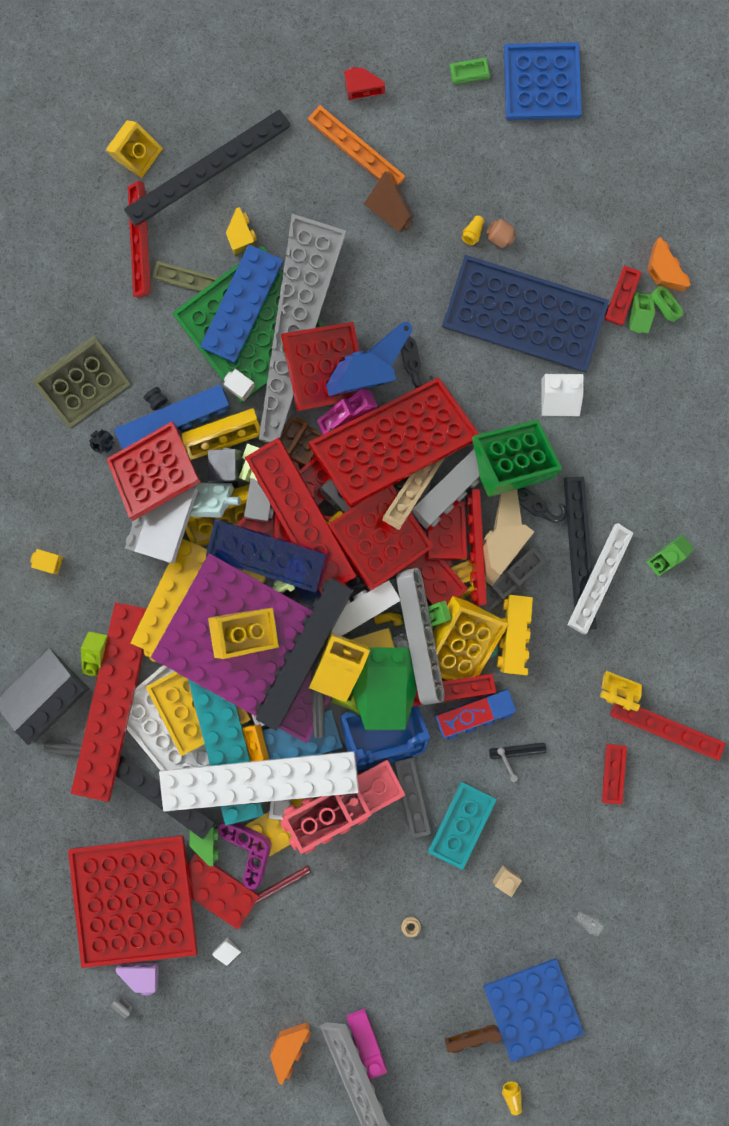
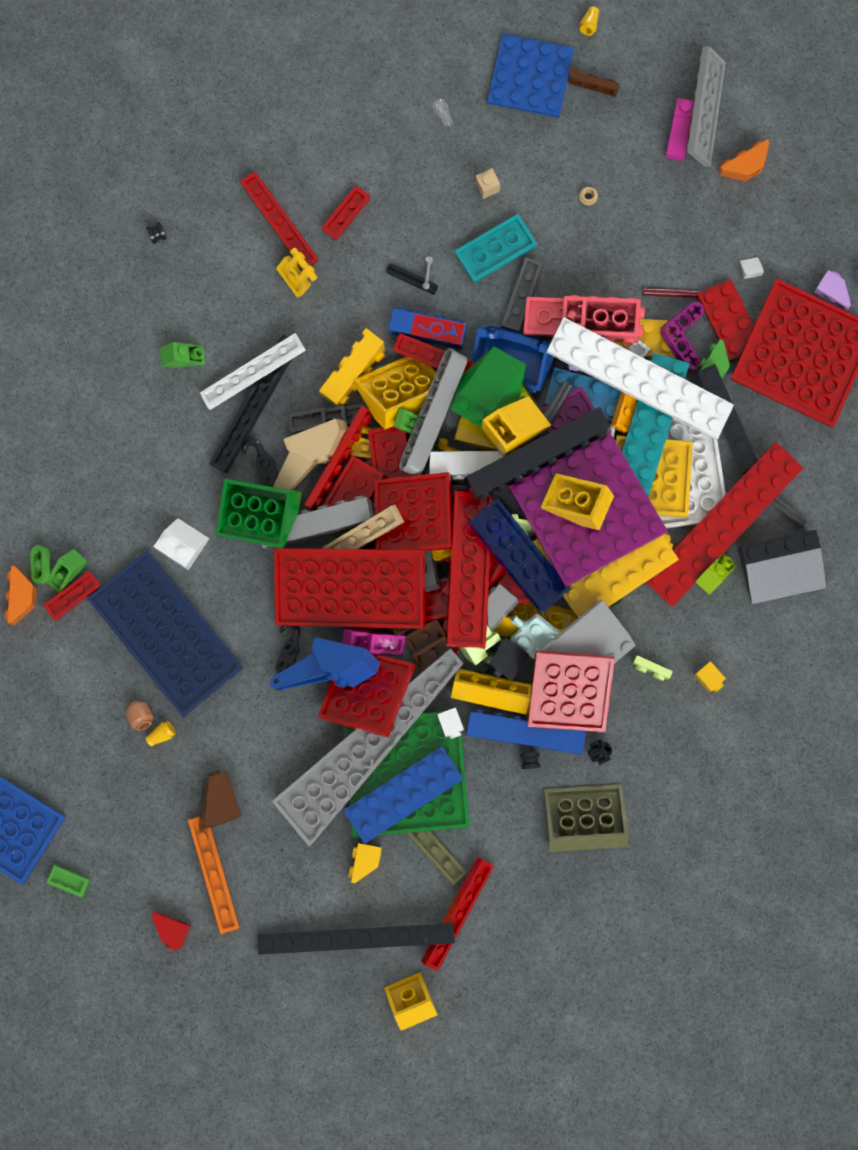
camera: 145 degrees left, 5 degrees down
(92, 539) = (645, 665): none -> yellowish green plate

